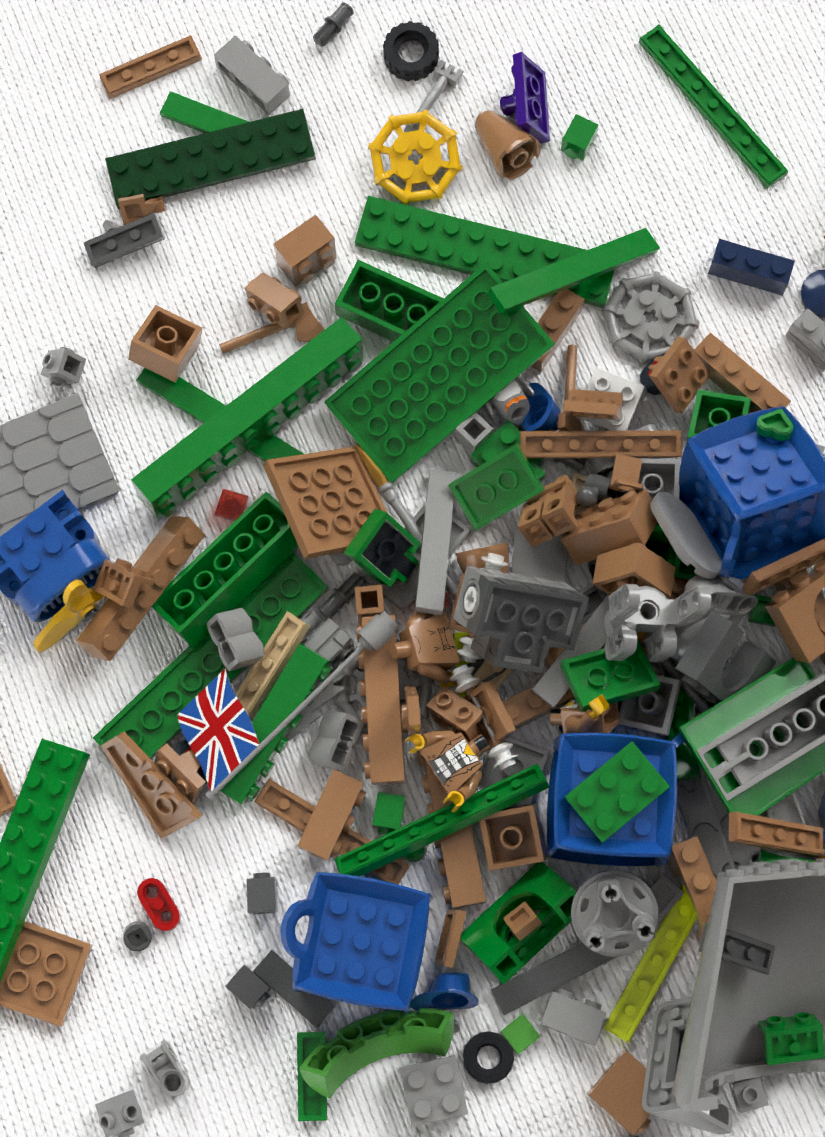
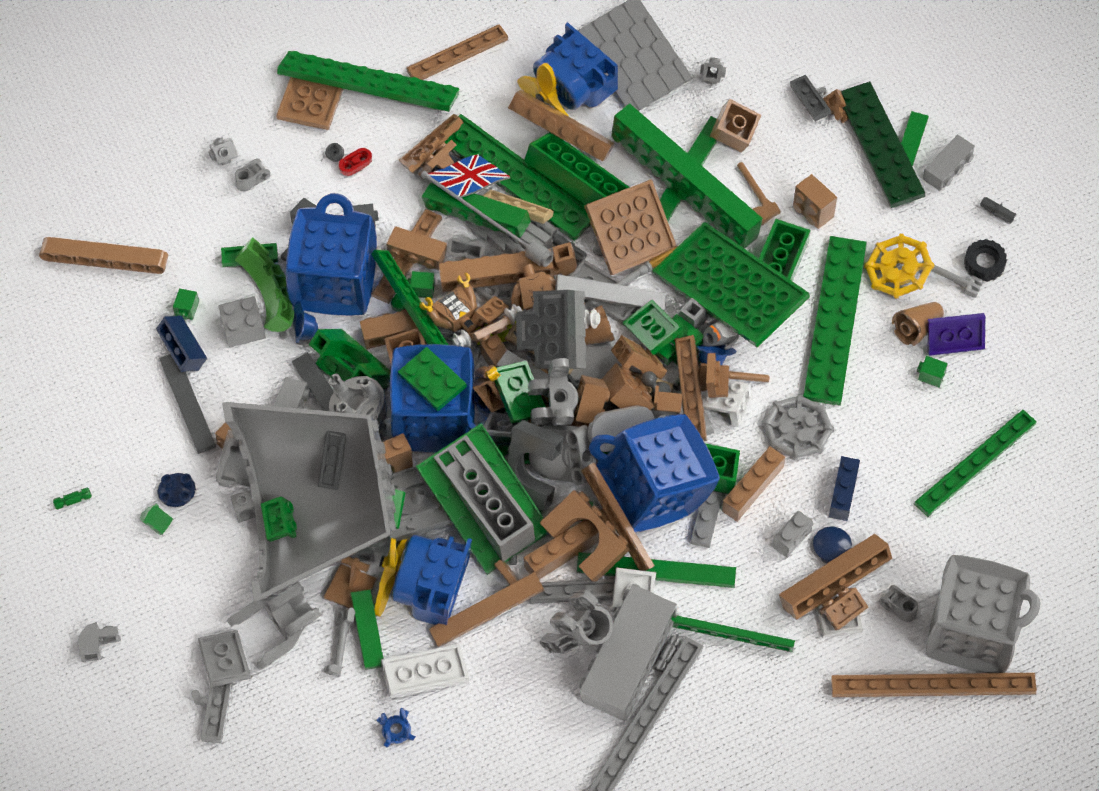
camera: 85 degrees right, 15 degrees down
(121, 581) = (563, 105): medium nougat bracket -> none
(150, 66) = (947, 104): medium nougat tile -> none
(231, 505) = (628, 176): clear red plate -> none
(235, 639) = (530, 180): light grey brick -> none
(274, 300) = (776, 186): medium nougat brick -> none
(384, 549) = (598, 257): piece -> none
(410, 711) = (485, 275): medium nougat wing -> none
(450, 938) = (340, 324): medium nougat tile -> none
(505, 1052) = (259, 345): black tyre -> none
(520, 1033) = (279, 372): bright green tile -> none
(522, 920) = (350, 360): medium nougat plate -> none
(558, 321) = (779, 361): medium nougat brick -> none
(572, 270) = (818, 360): green tile -> none
(675, 375) = (748, 435): medium nougat plate -> none
(775, 425) = (702, 468): green tile -> none
(775, 834) = (414, 495): medium nougat tile -> none

